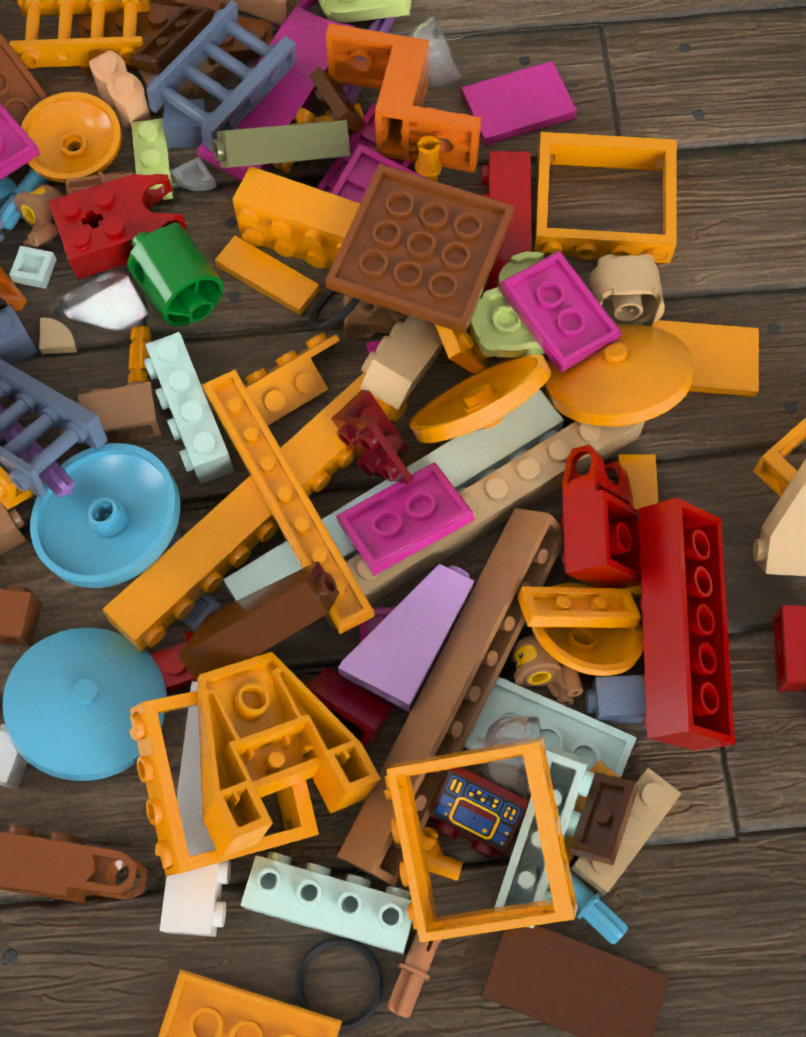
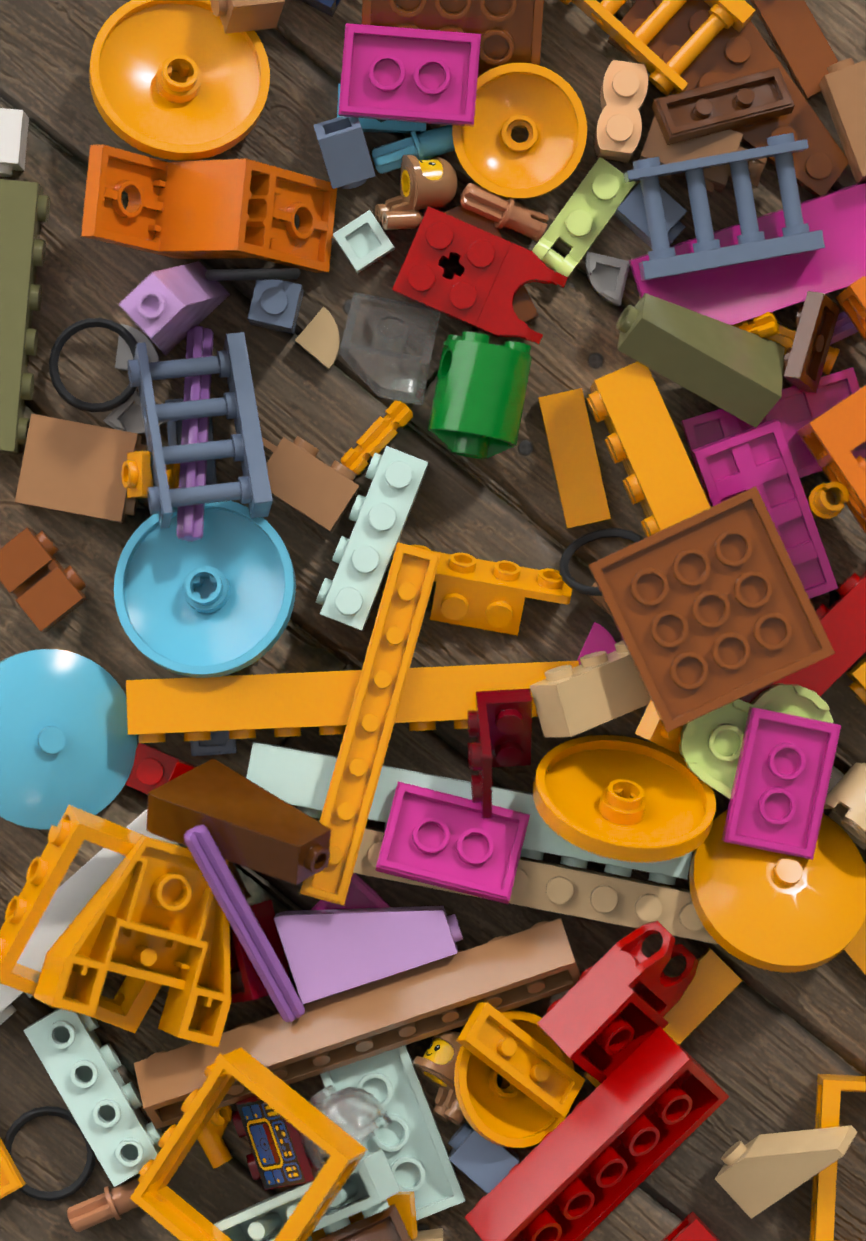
camera: 45 degrees right, 20 degrees up
(320, 680) = (244, 923): none -> medium lavender axle

